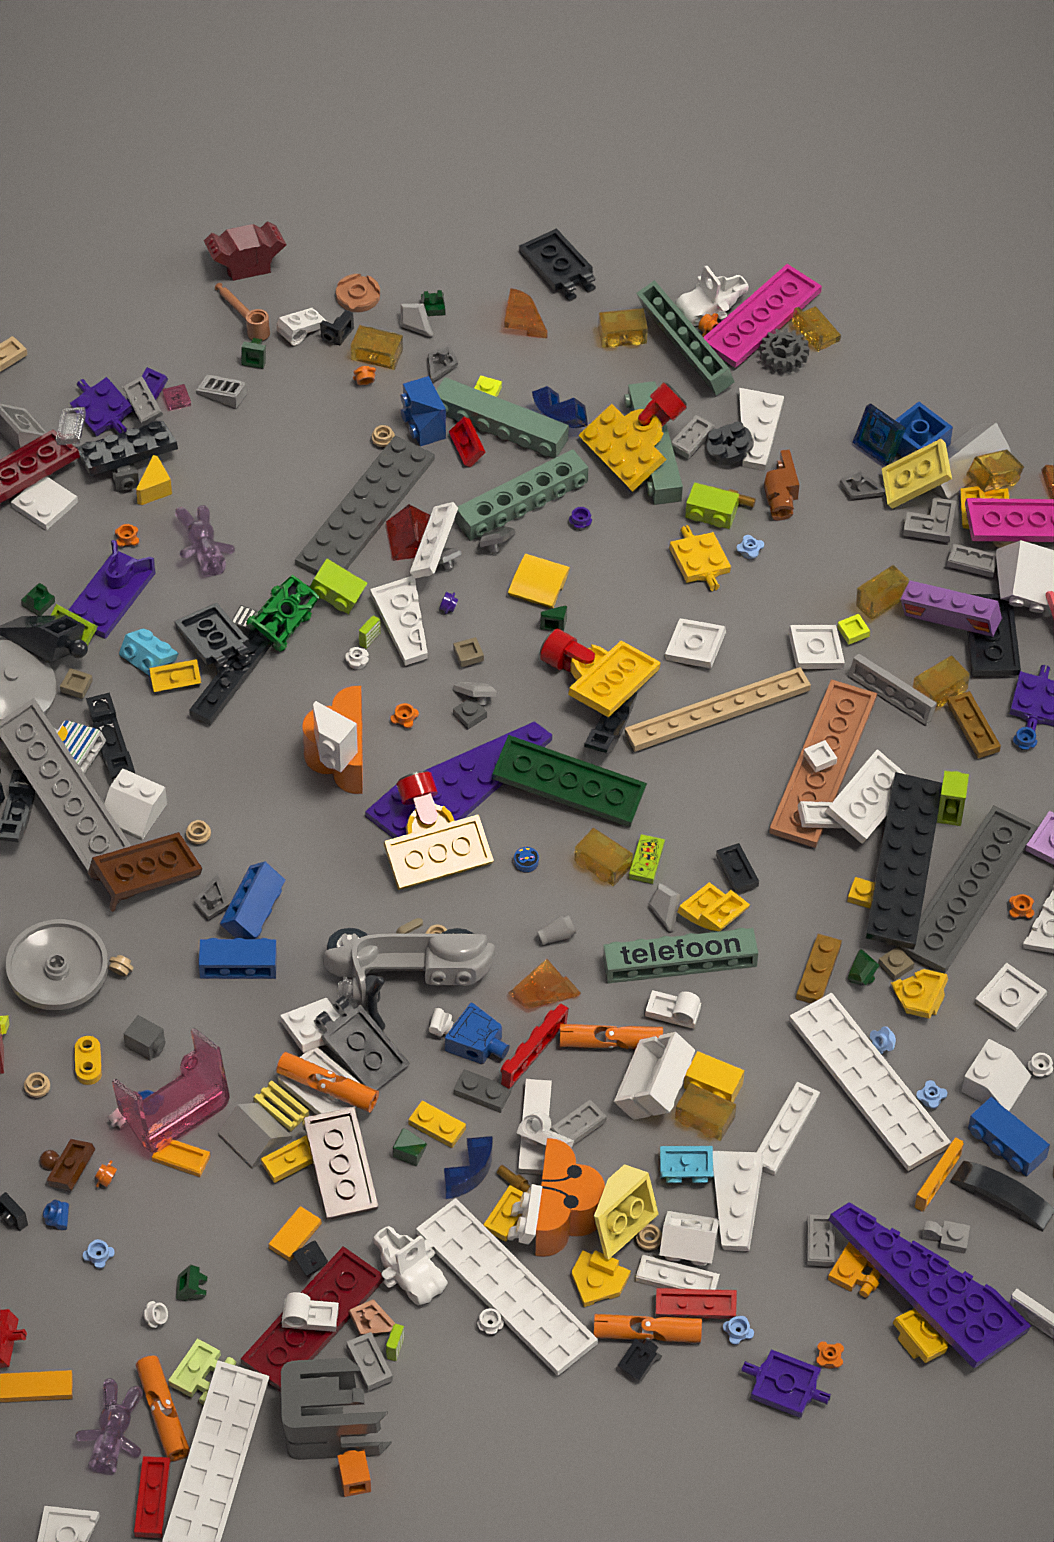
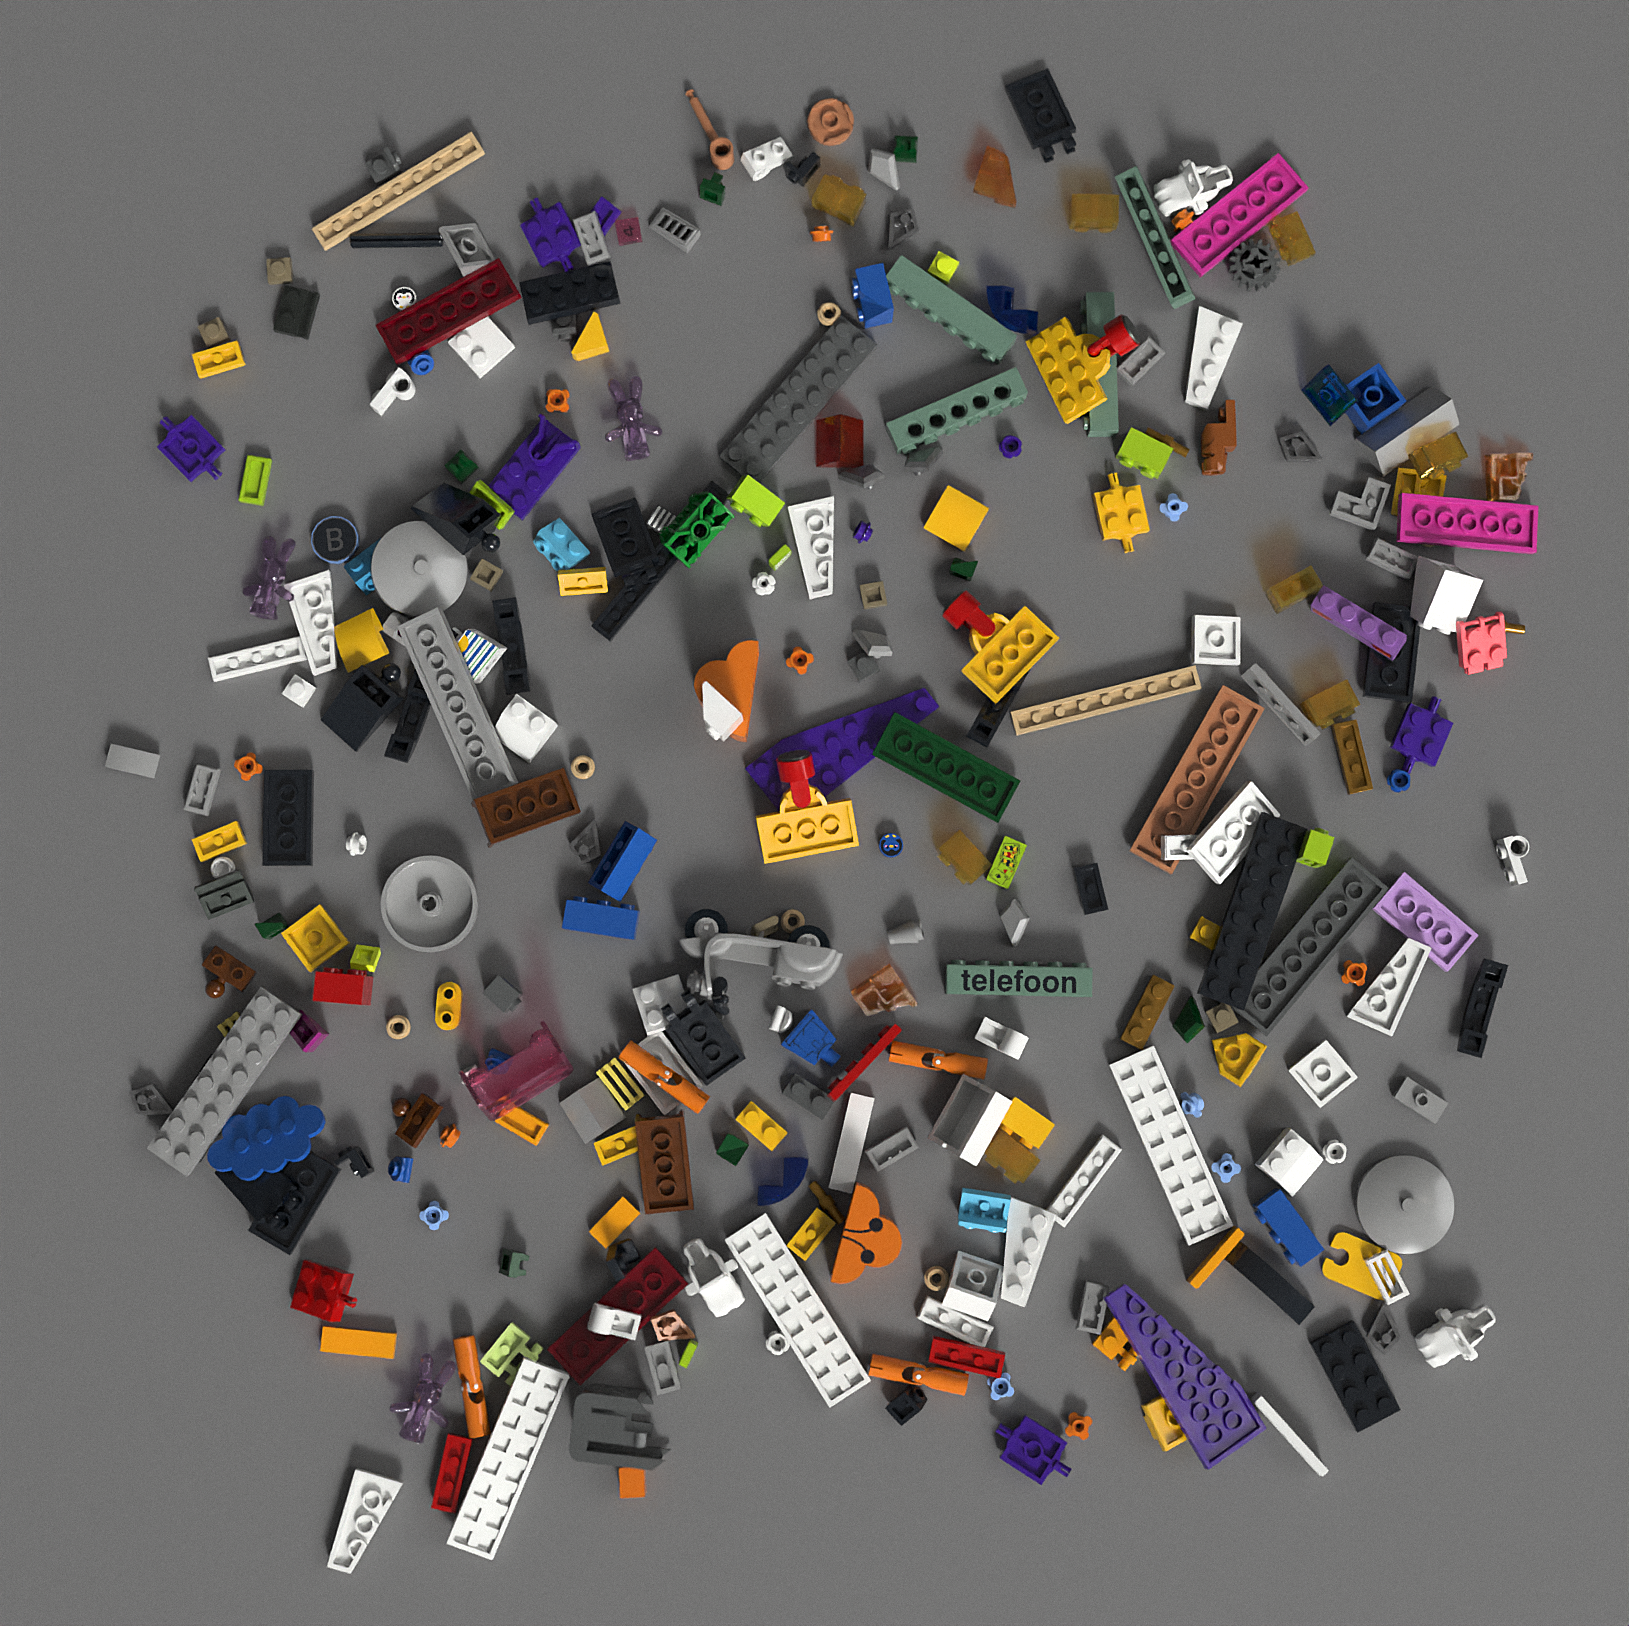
camera: 10 degrees right, 30 degrees up
(70, 426) = (516, 260): clear tile -> none
(120, 965) = (490, 909): tan plate -> none
(155, 1314) = (477, 1289): white plate -> none
(246, 249) = (722, 53): dark red slope -> none
(433, 540) = (858, 462): white plate -> none
(467, 442) = (912, 335): red plate -> none
(529, 1208) = (830, 1250): white plate -> none
(532, 1136) = (852, 1161): white plate -> none
(598, 1277) = (882, 1313): yellow plate -> none
(624, 1208) = (918, 1258): light yellow slope -> none
(695, 643) = (1097, 617): white plate -> none
(713, 908) = (1059, 934): yellow slope -> none
(735, 433) = (1172, 365): black plate -> none
(820, 756) = (1194, 780): white plate -> none
(853, 629) = (1256, 625): neon yellow plate -> none
(916, 473) = (1358, 451): light yellow plate -> none
(951, 1236) = (1213, 1319): light grey plate -> none

